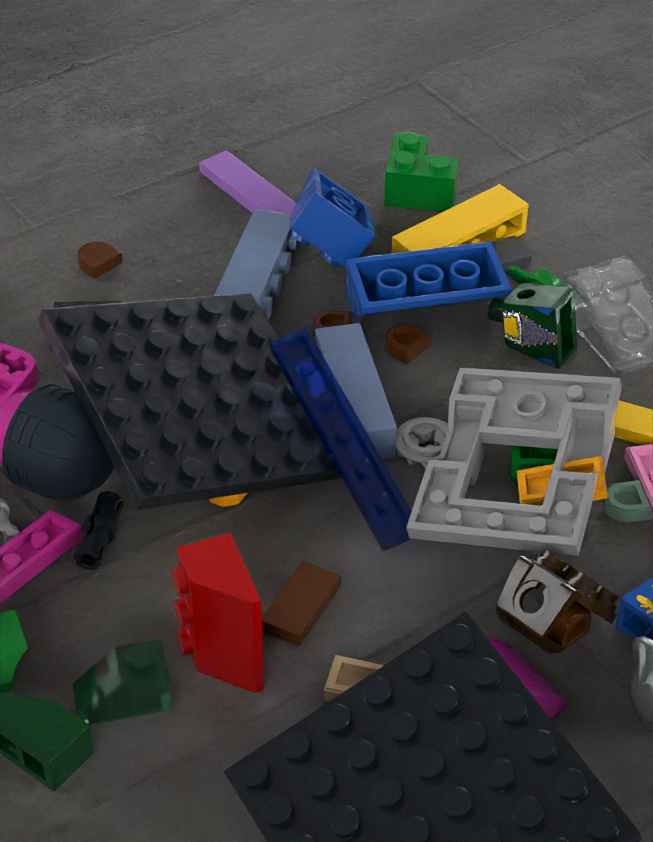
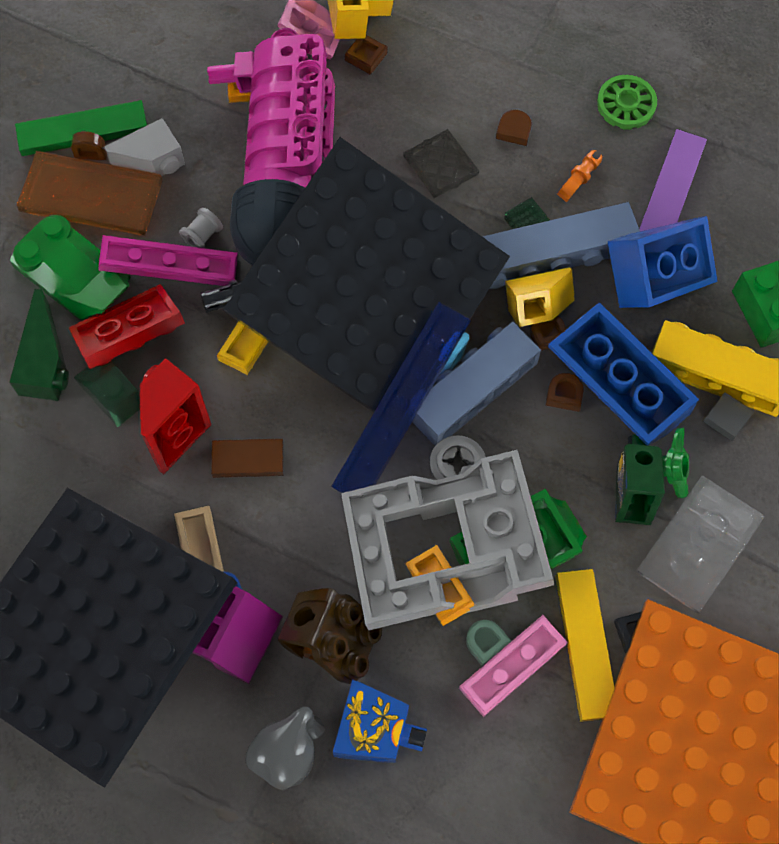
camera: 60 degrees right, 25 degrees up
(64, 630) = (126, 326): none -> red plate
(141, 183) = (627, 101): none -> bright green wheel
(153, 542) = (242, 349): none -> yellow tile
(189, 238) = (579, 175): none -> orange piece
(201, 285) = (525, 214): none -> clear green tile
(297, 307) = (539, 296): none -> yellow slope

